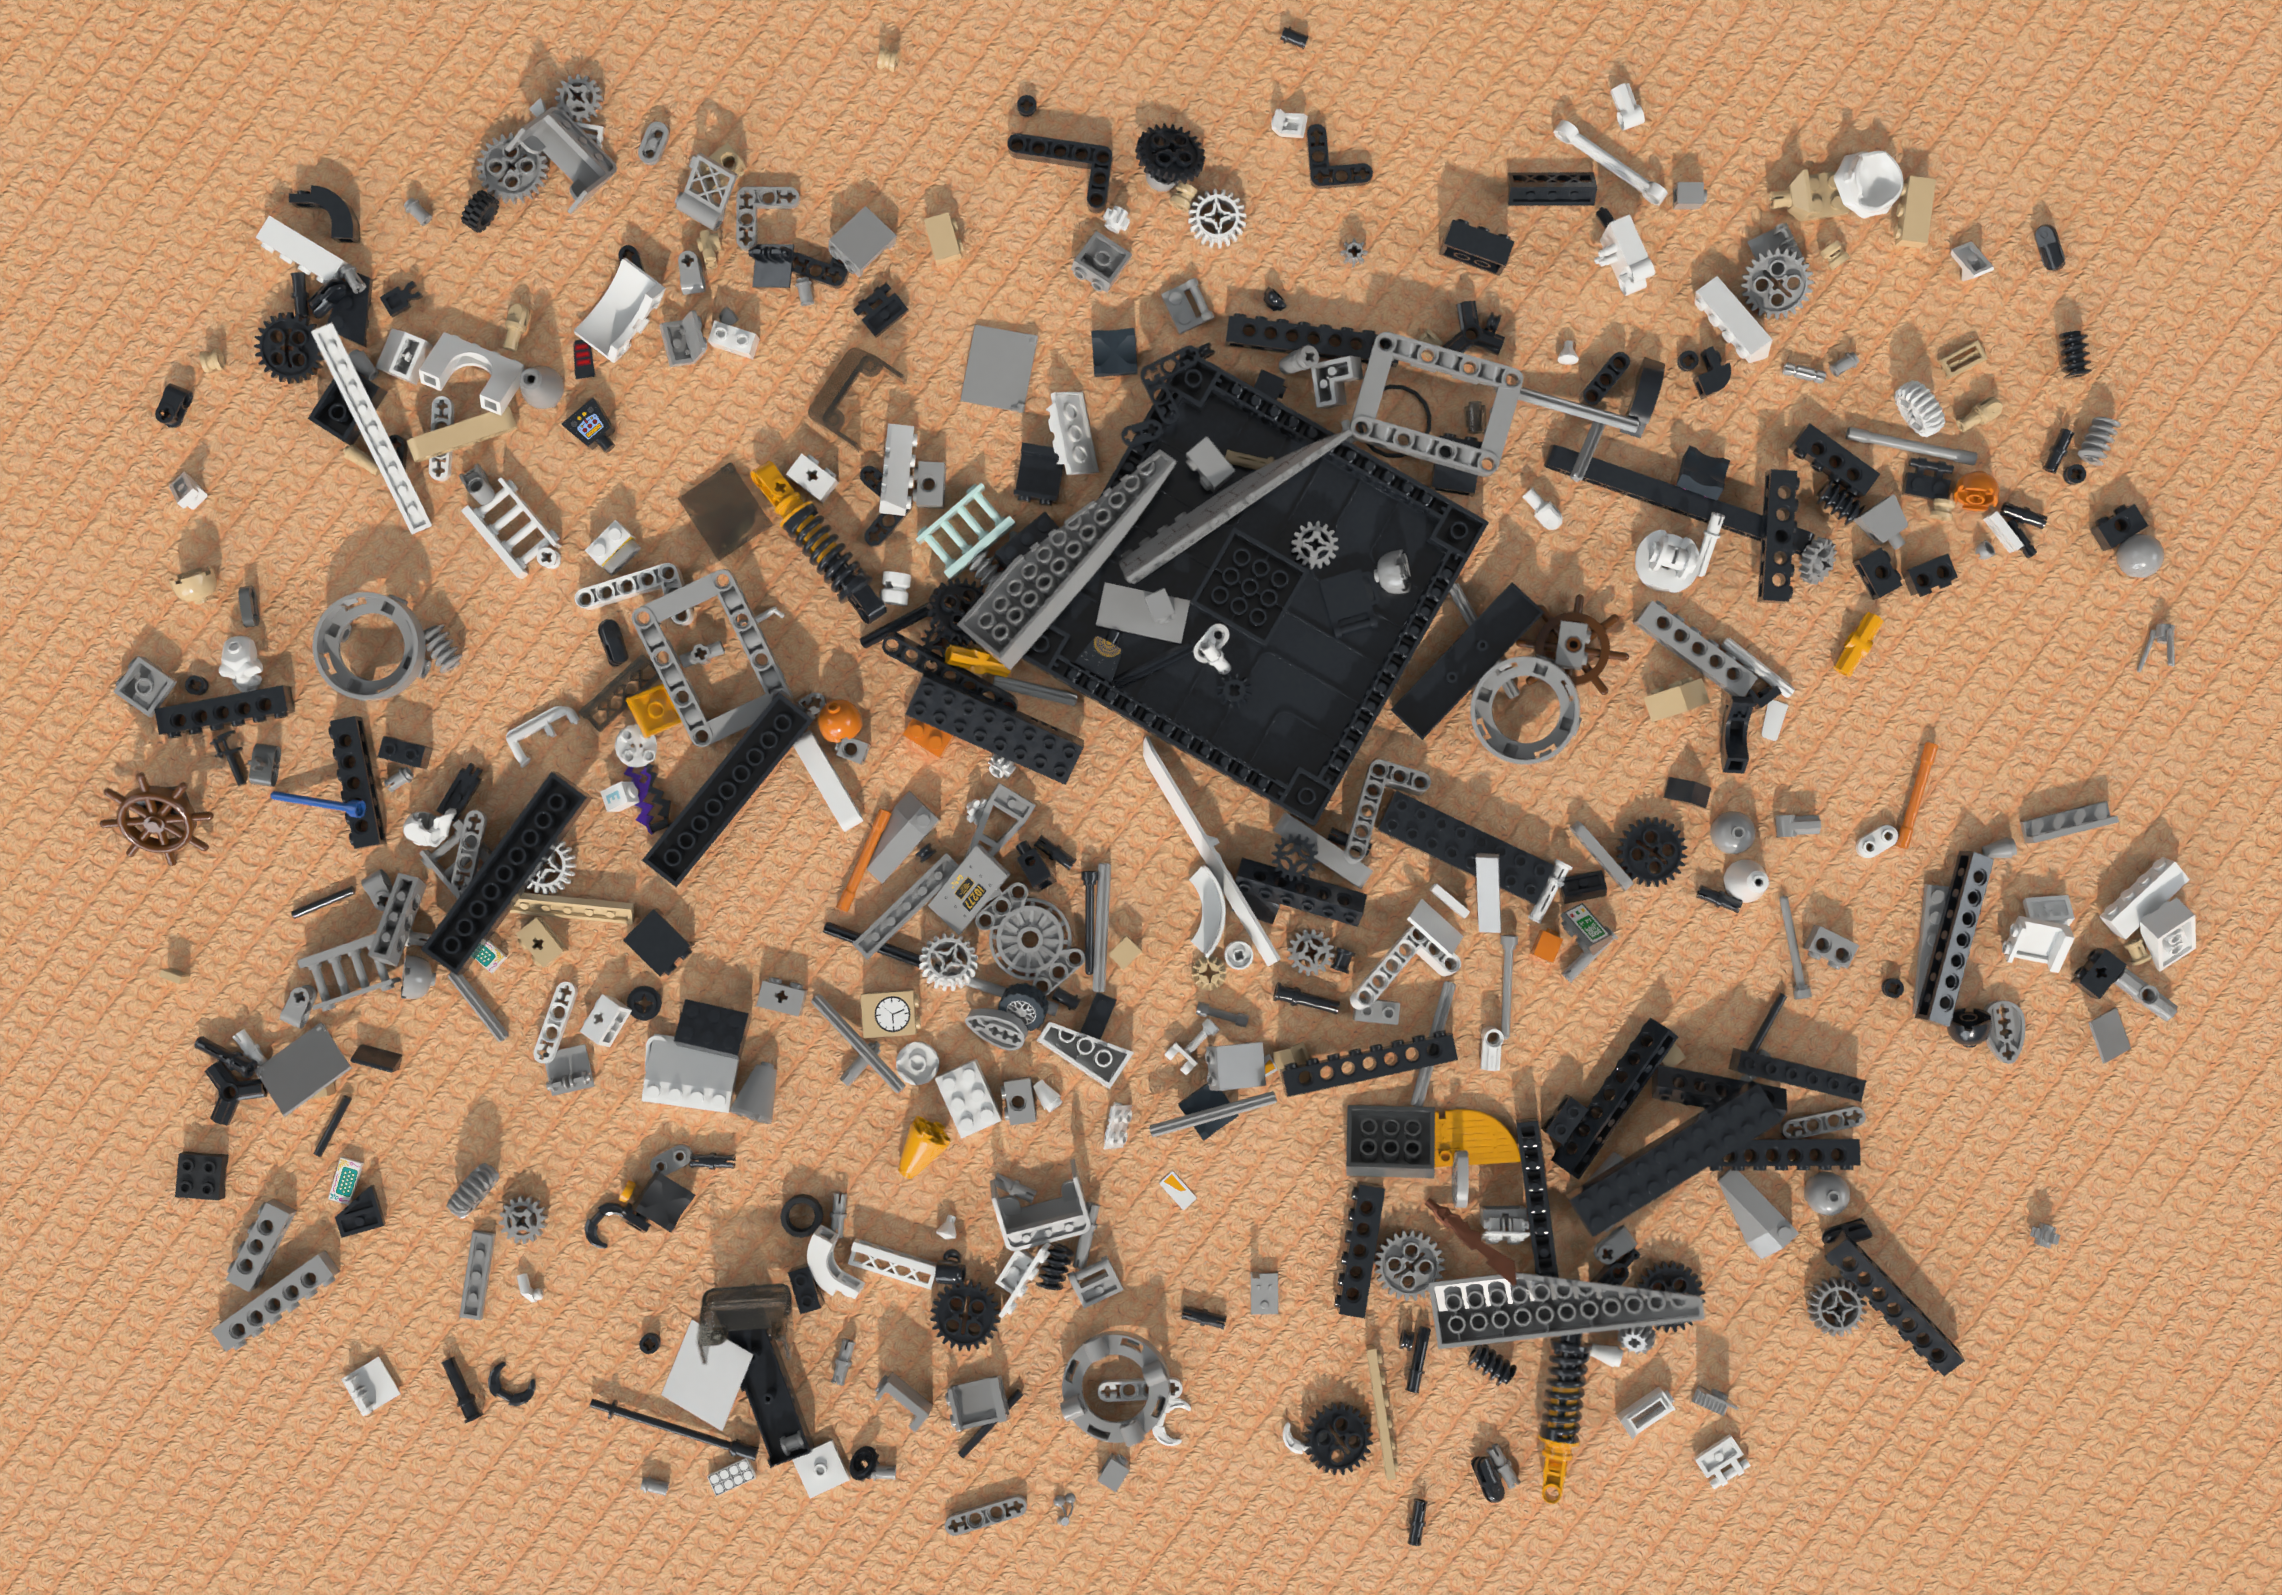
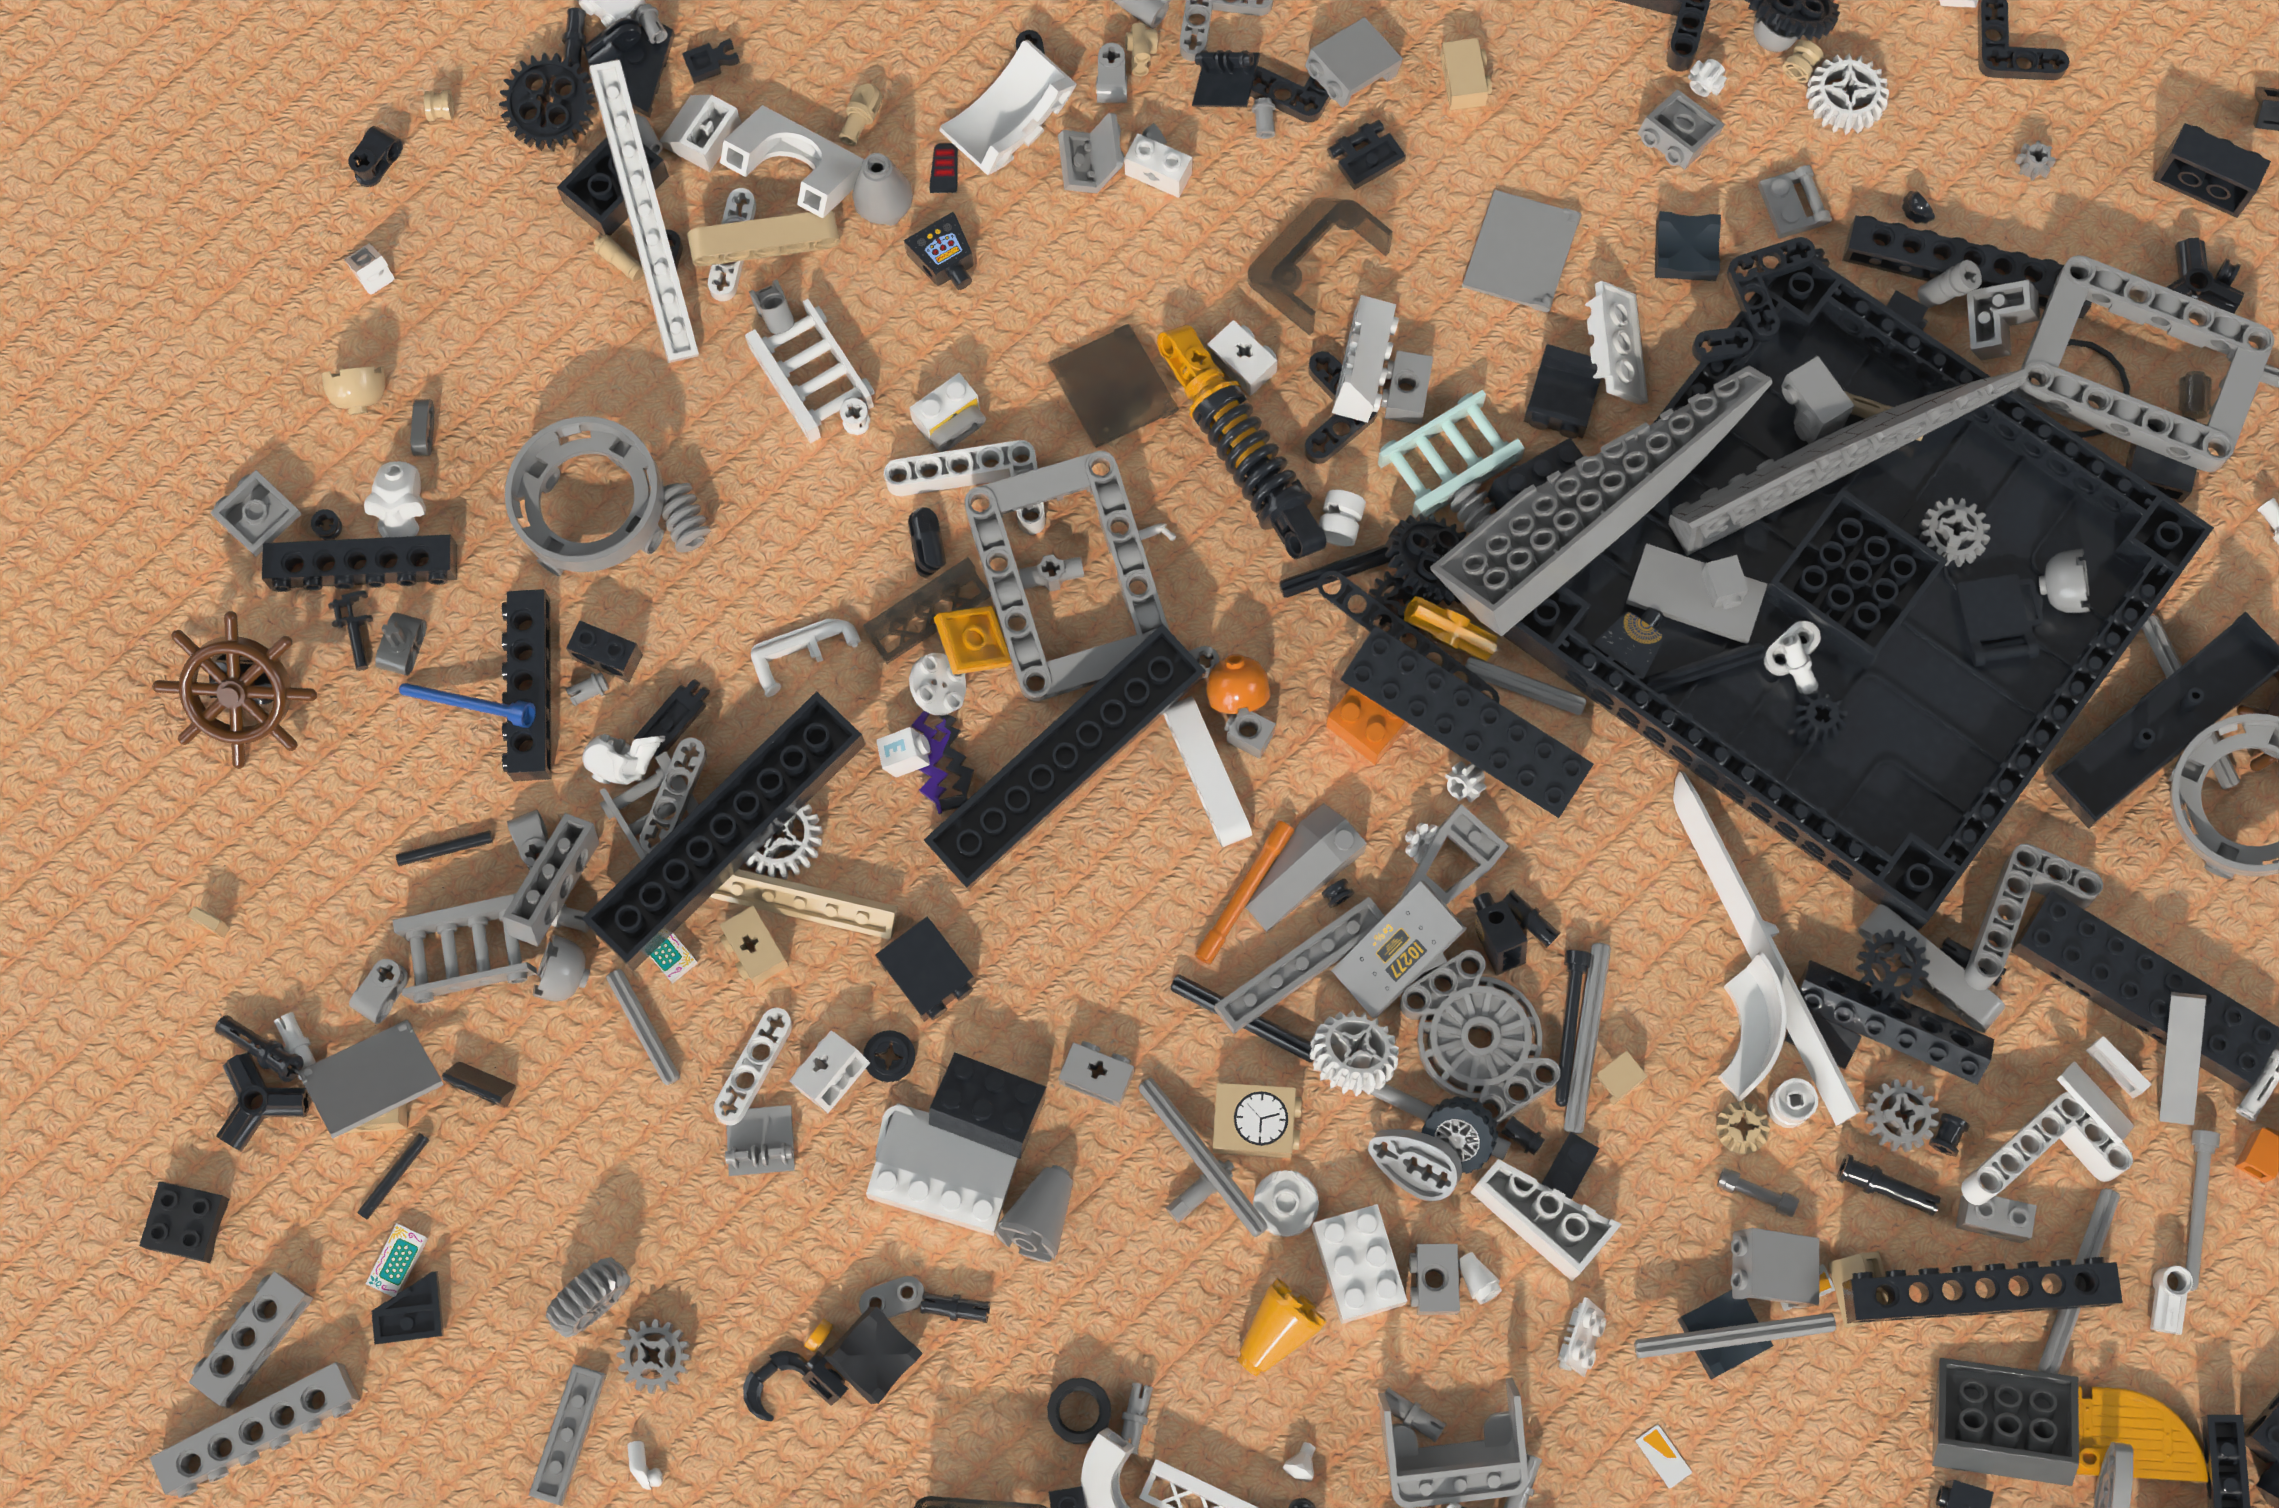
camera: 10 degrees right, 15 degrees down
(1209, 1028) = (1736, 1210): white bar -> none

